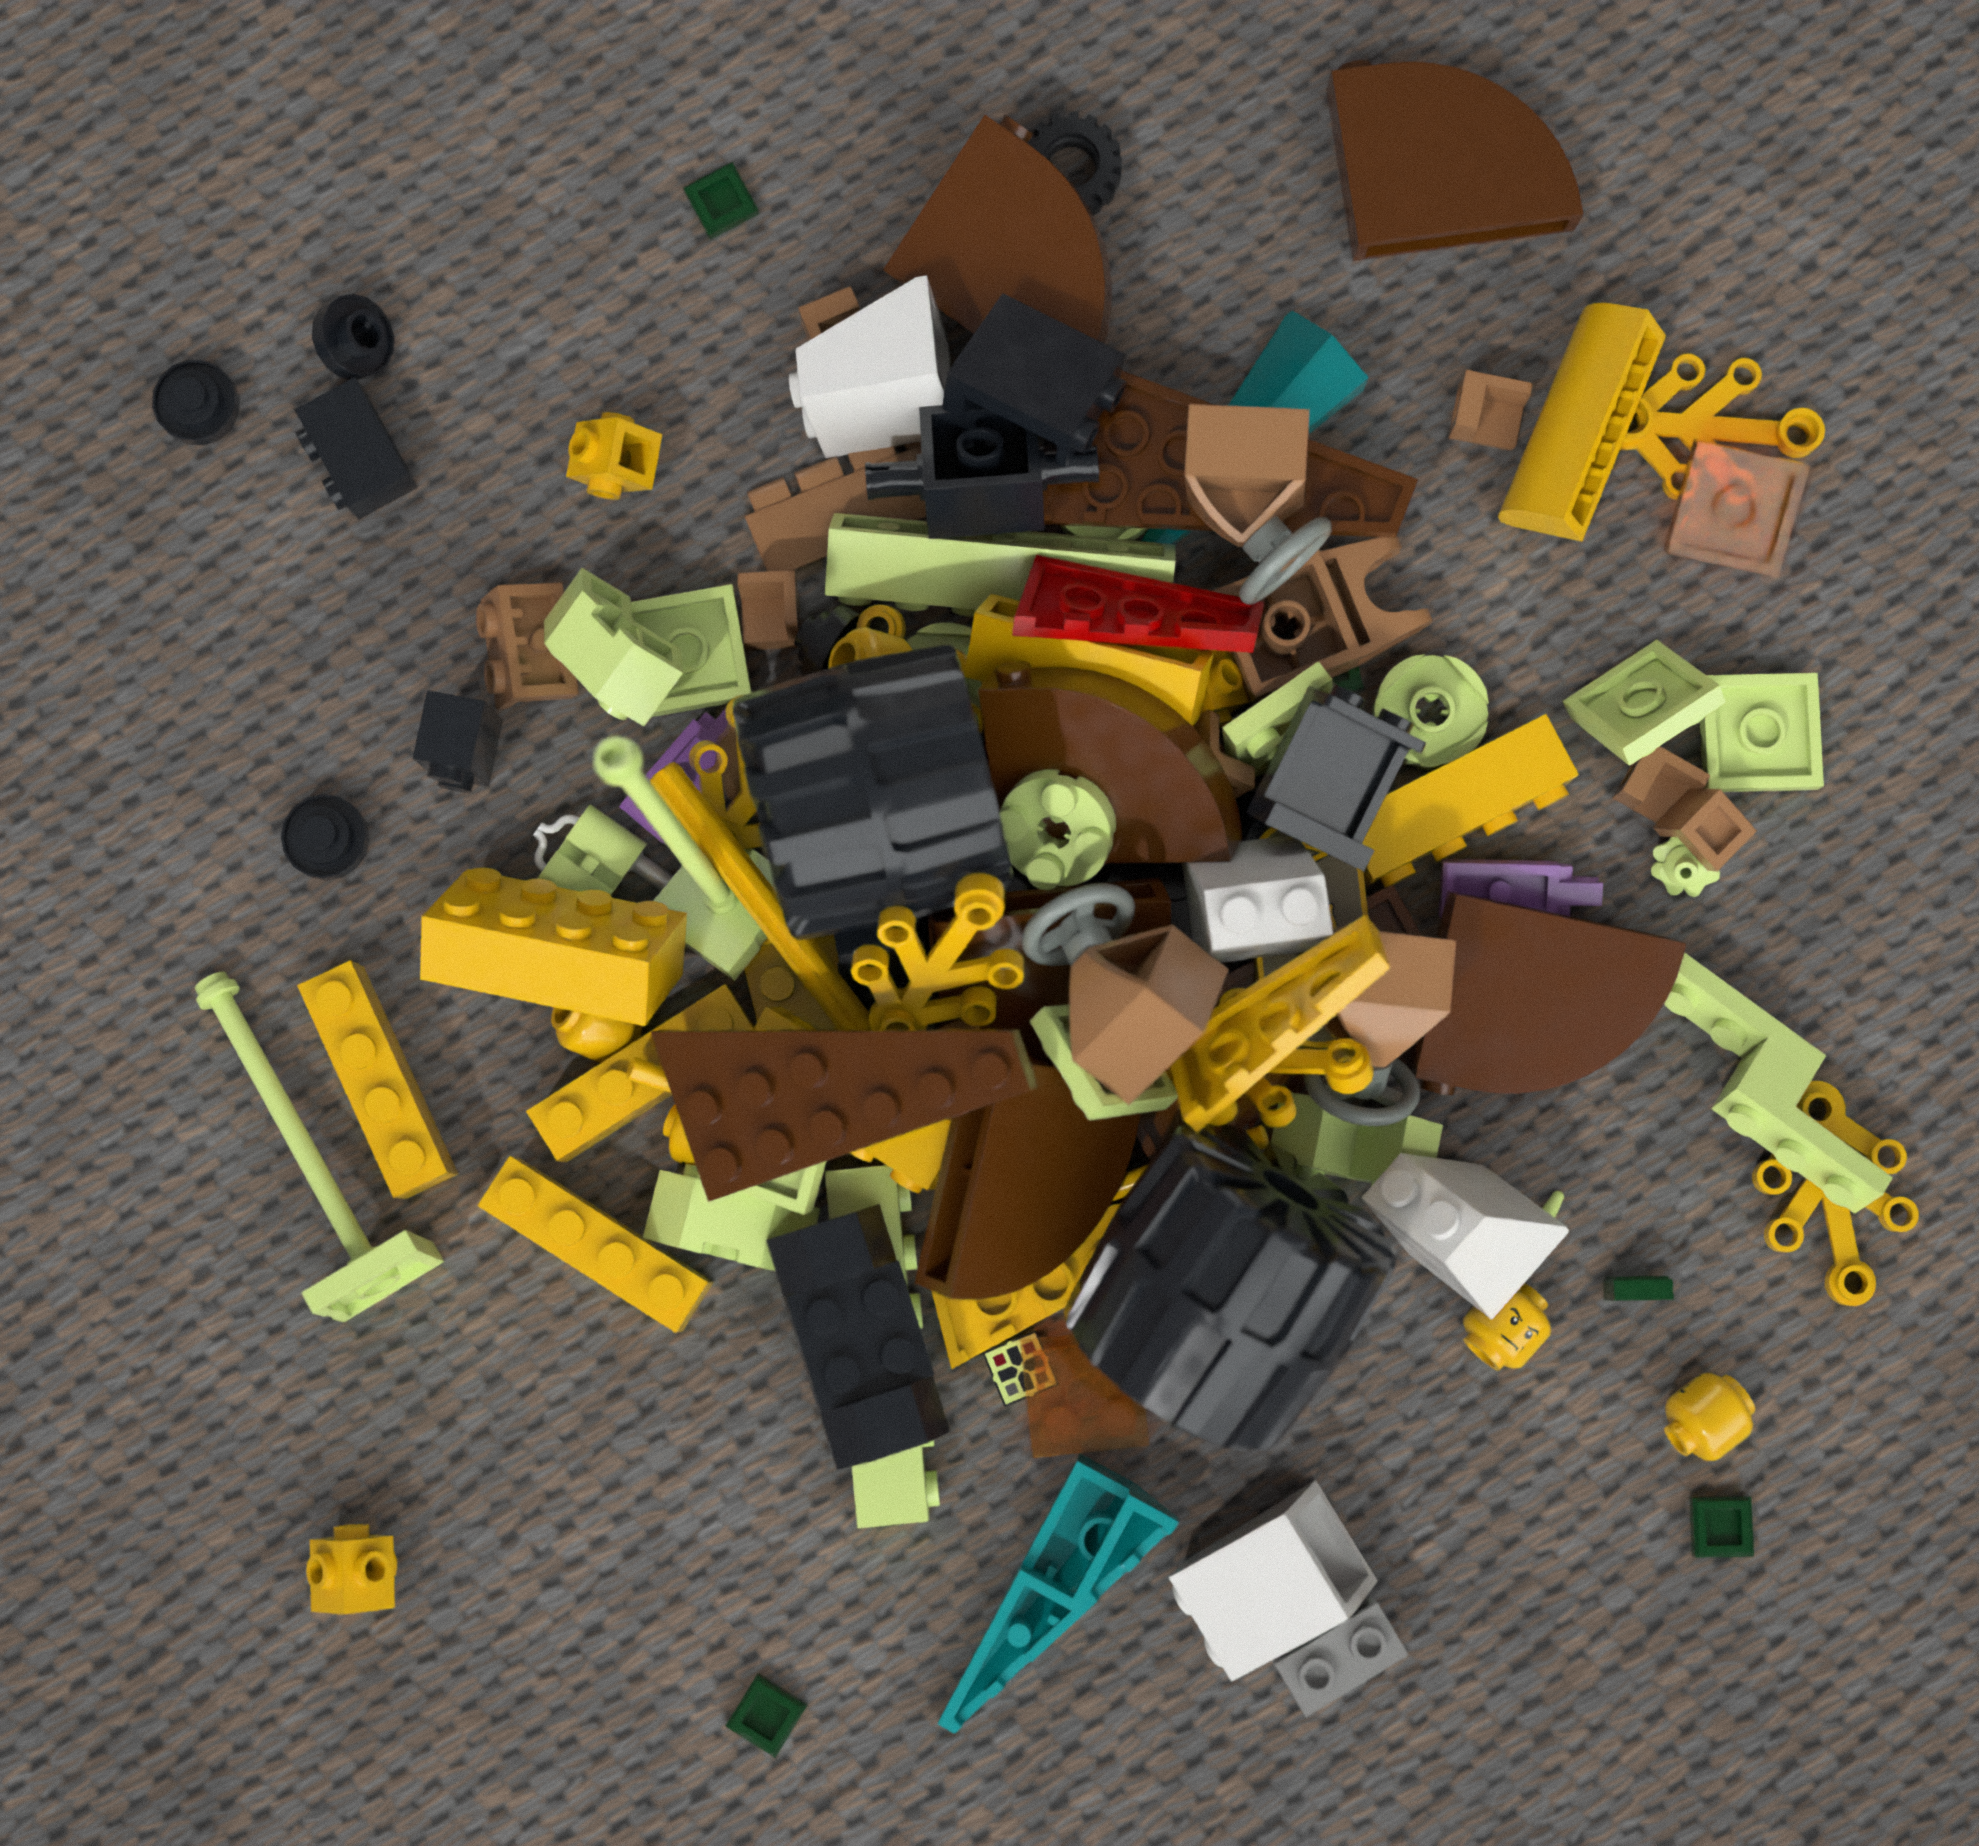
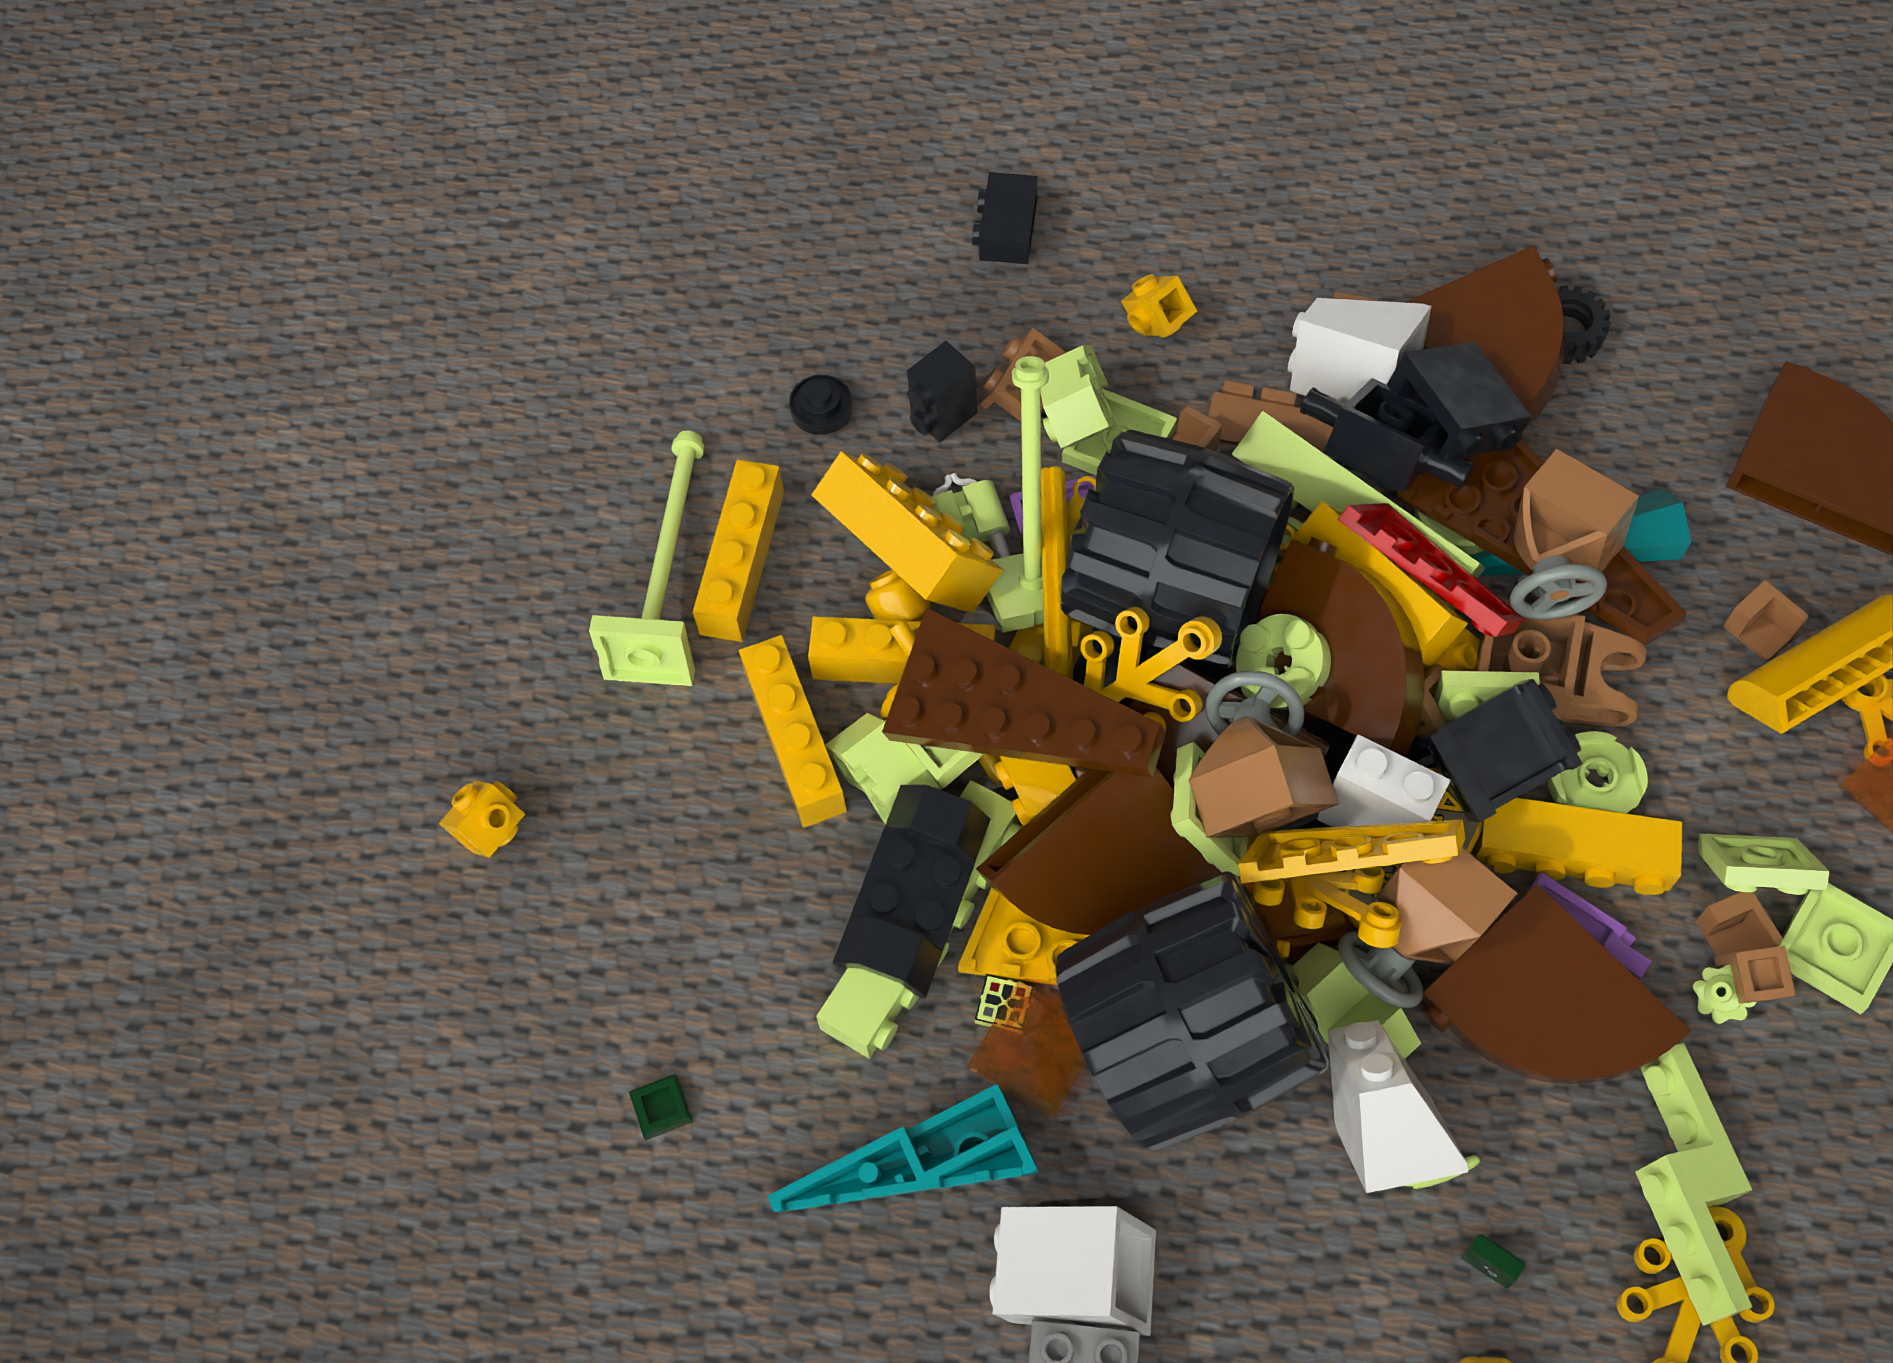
camera: 40 degrees right, 20 degrees down
(195, 402) = (936, 145): black plate -> none
(353, 337) = (1054, 161): black plate -> none
(721, 201) = (1329, 223): dark green tile -> none
(1512, 1334) = (1375, 1218): yellow head -> none

